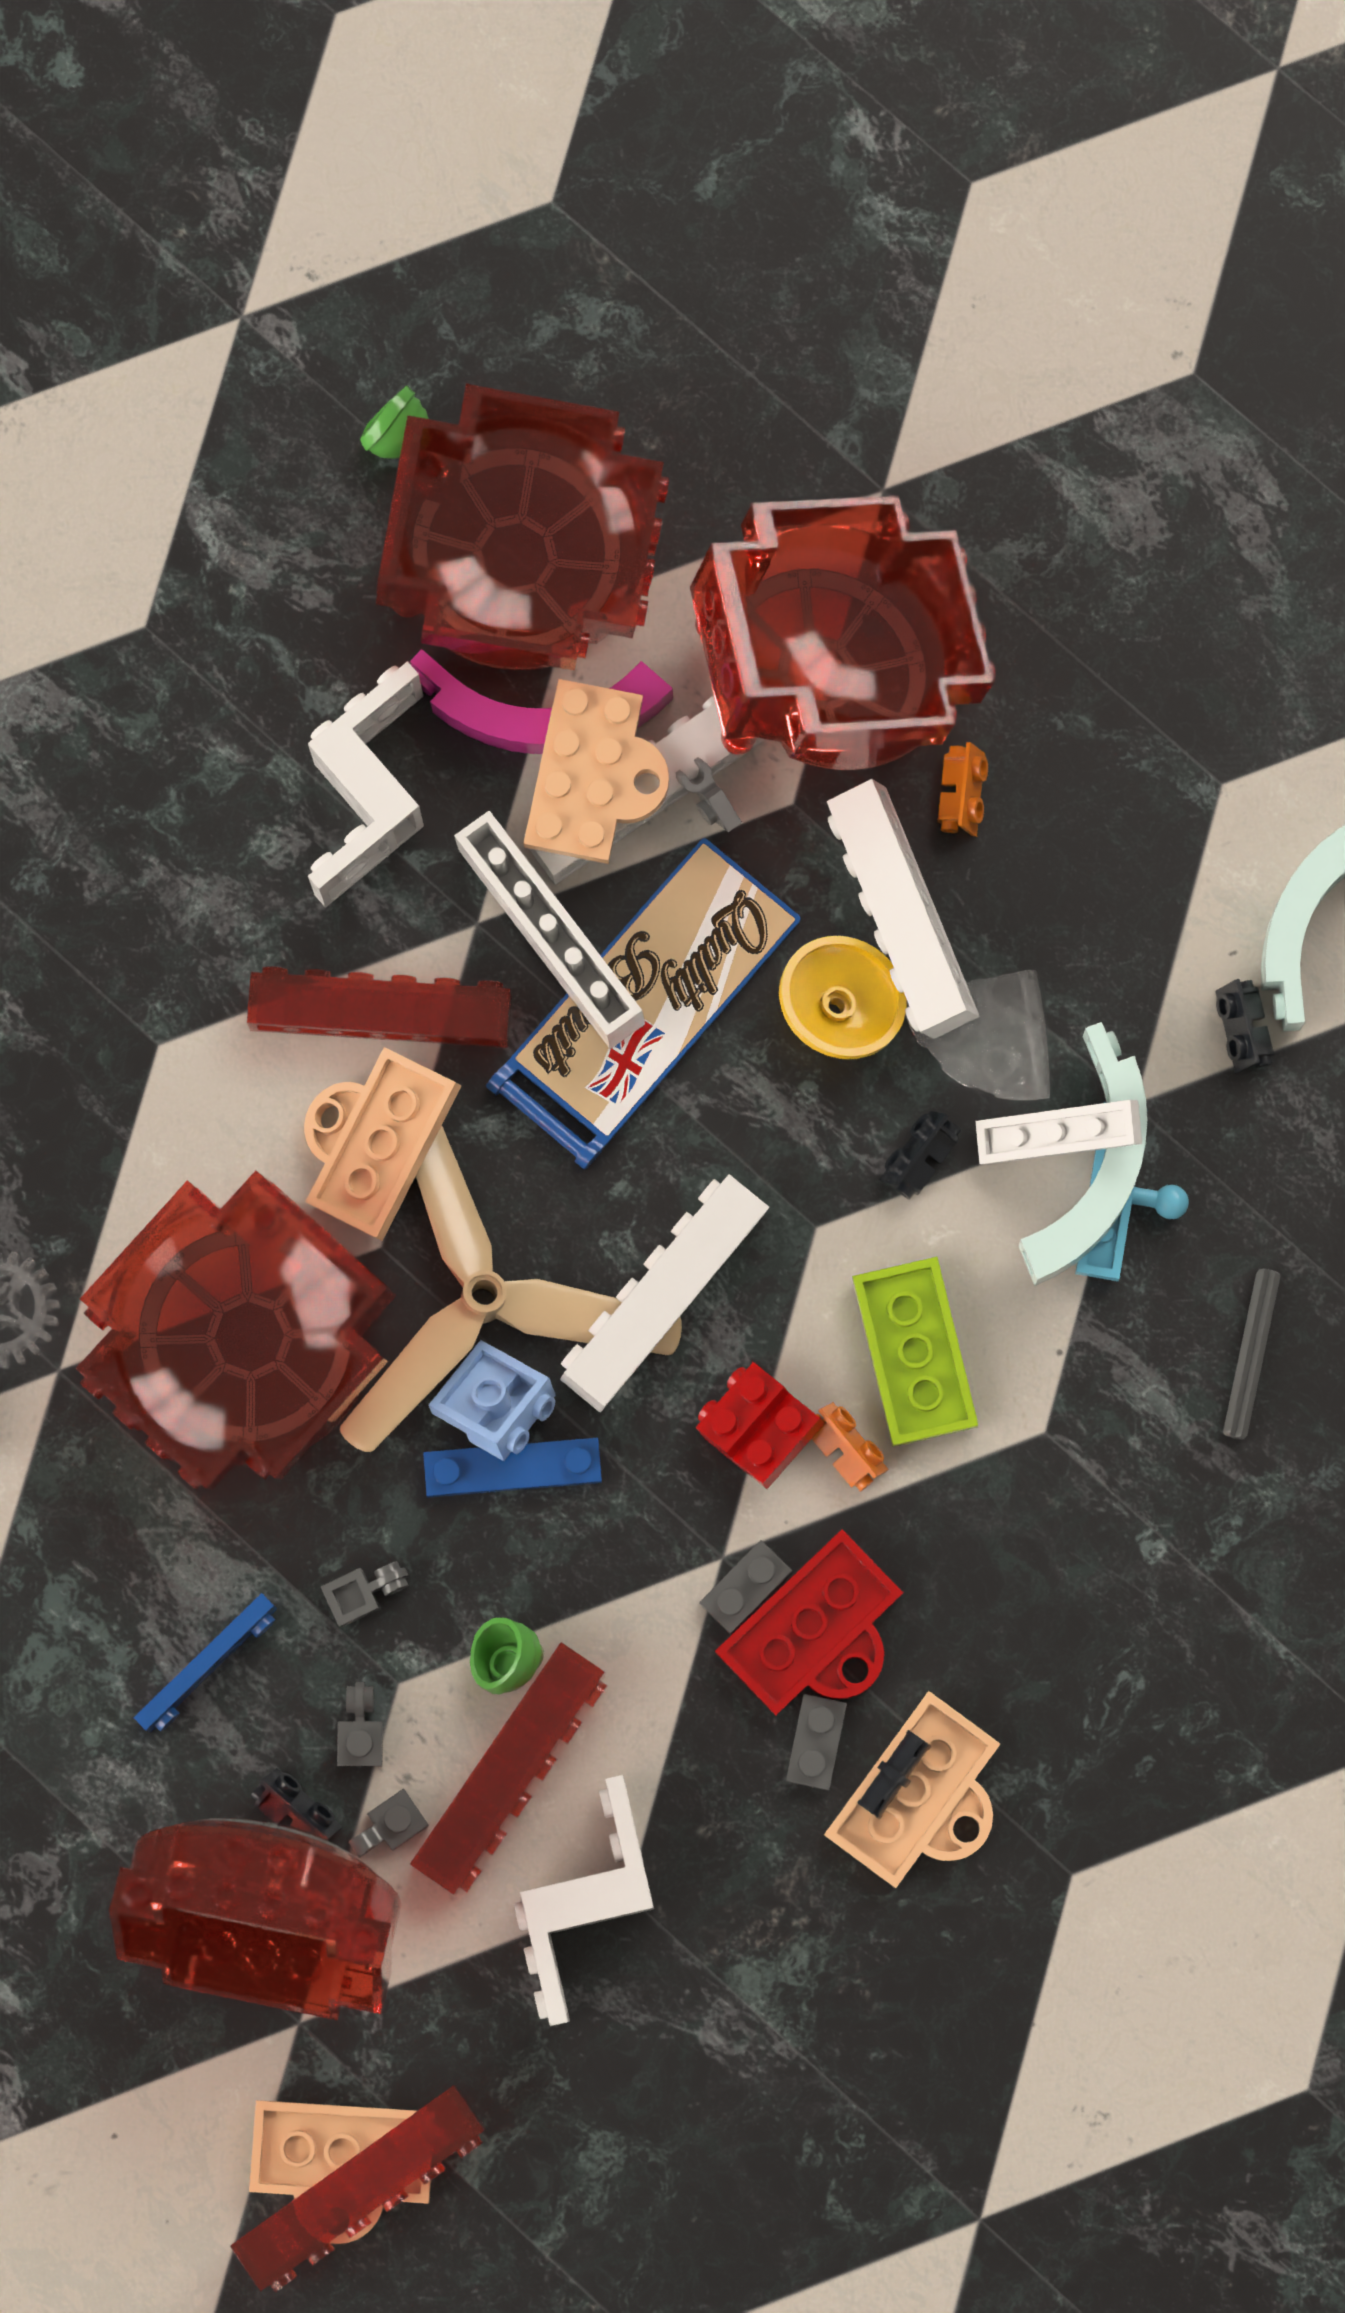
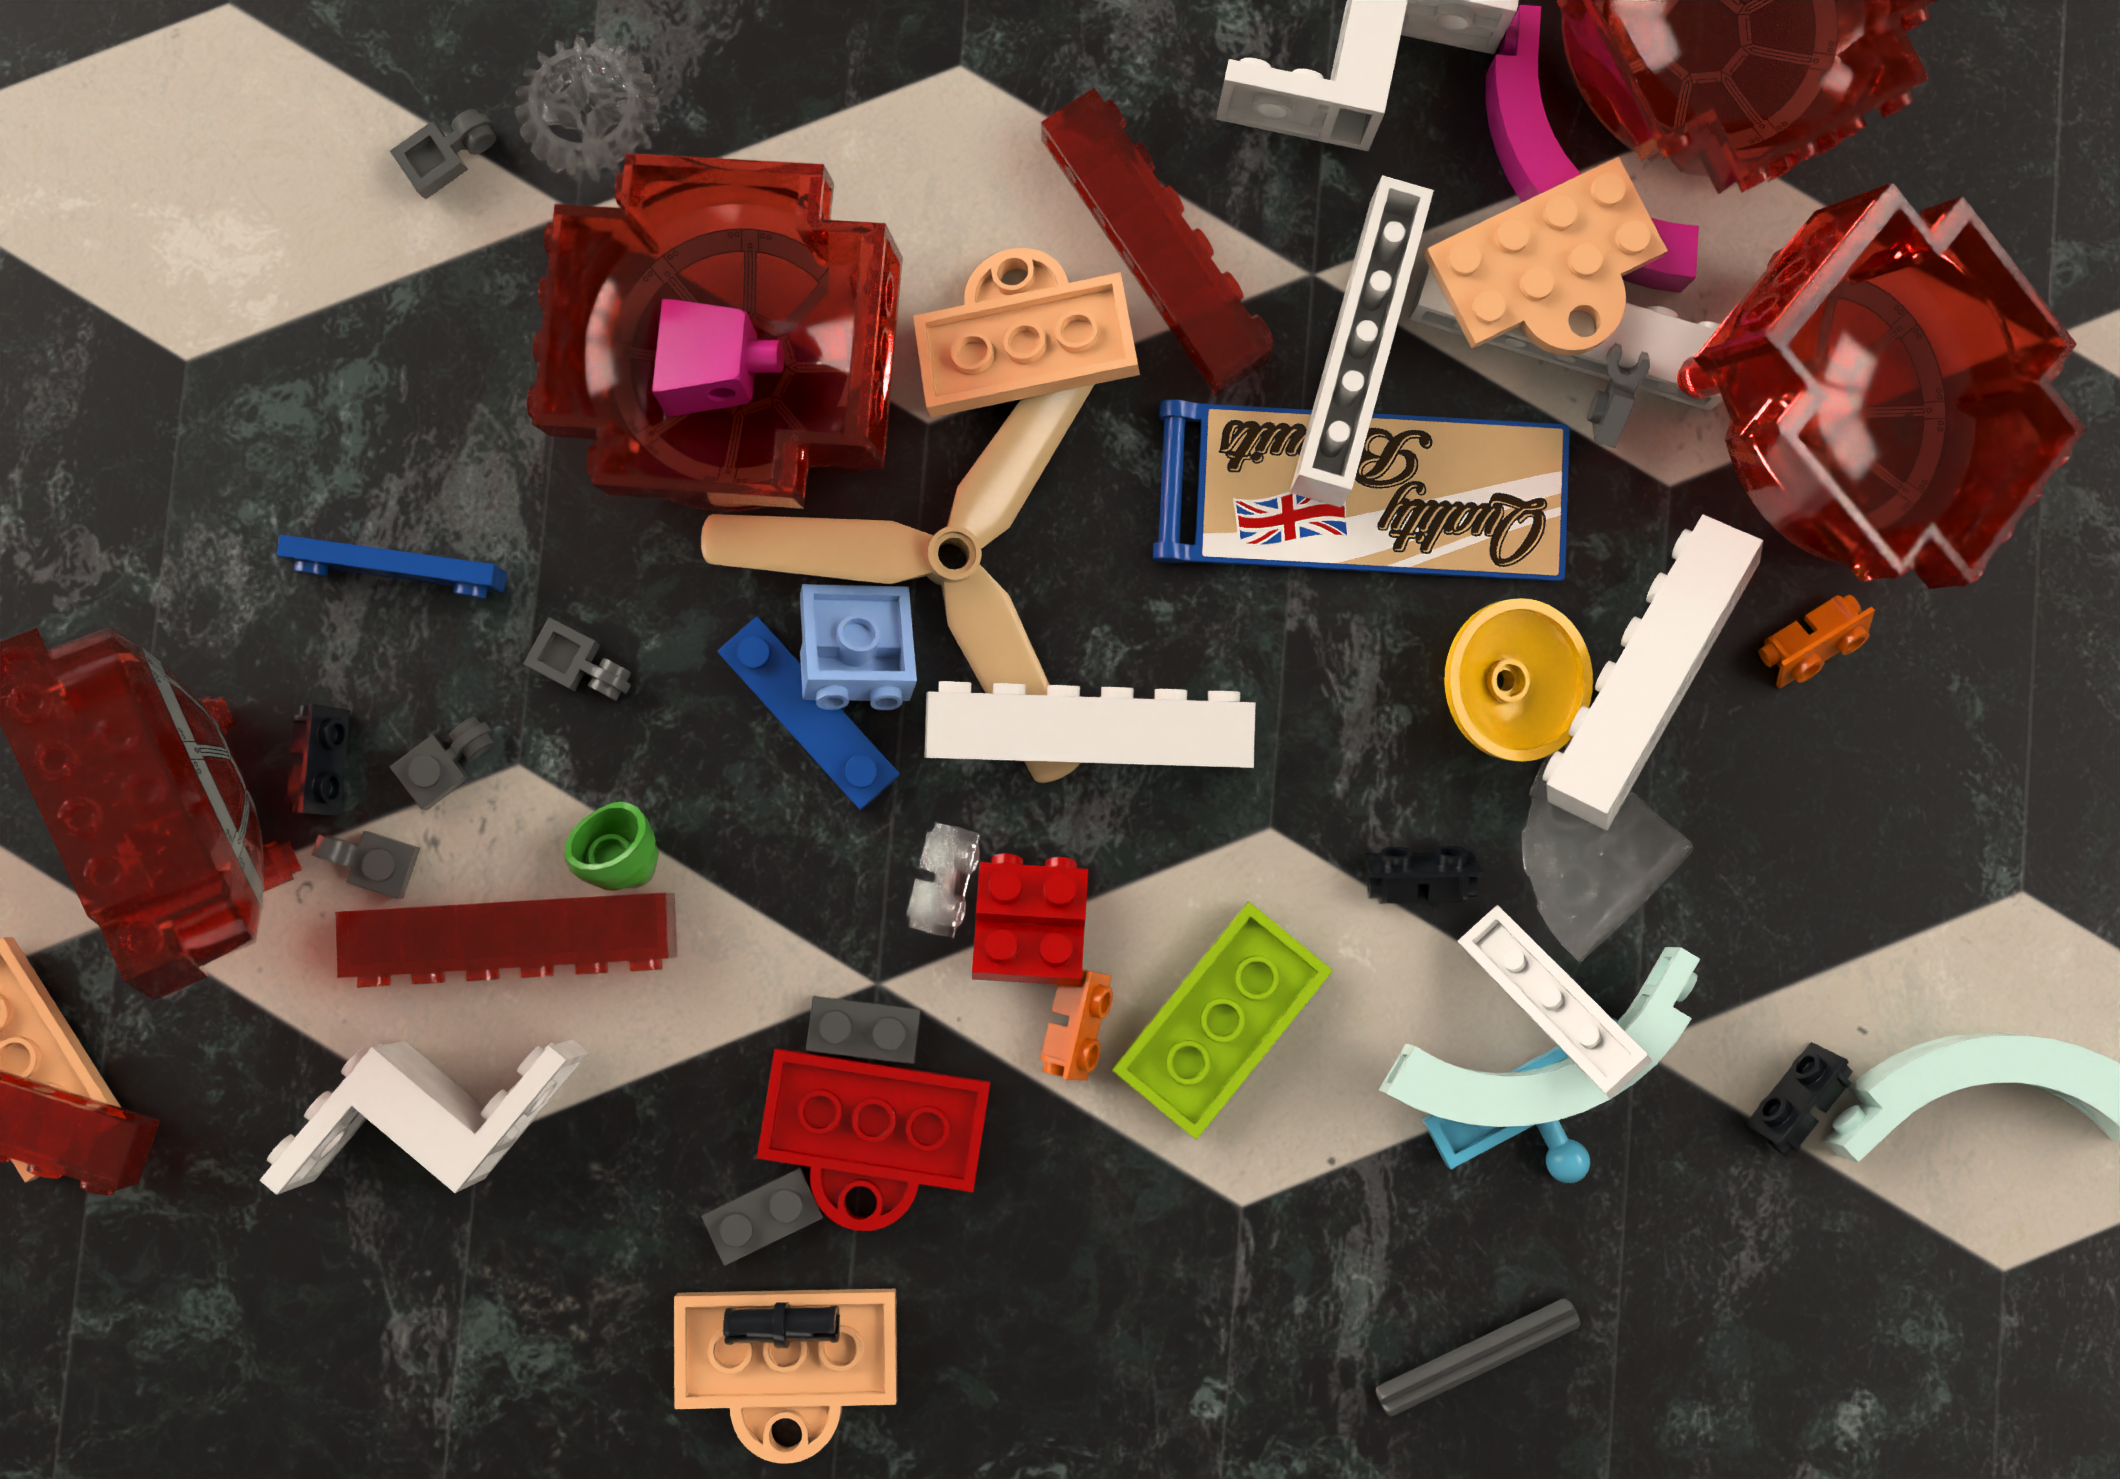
camera: 45 degrees right, 5 degrees up
(235, 1351) = (708, 357): none -> dark pink torso
(701, 1471) = (942, 904): none -> clear hinge

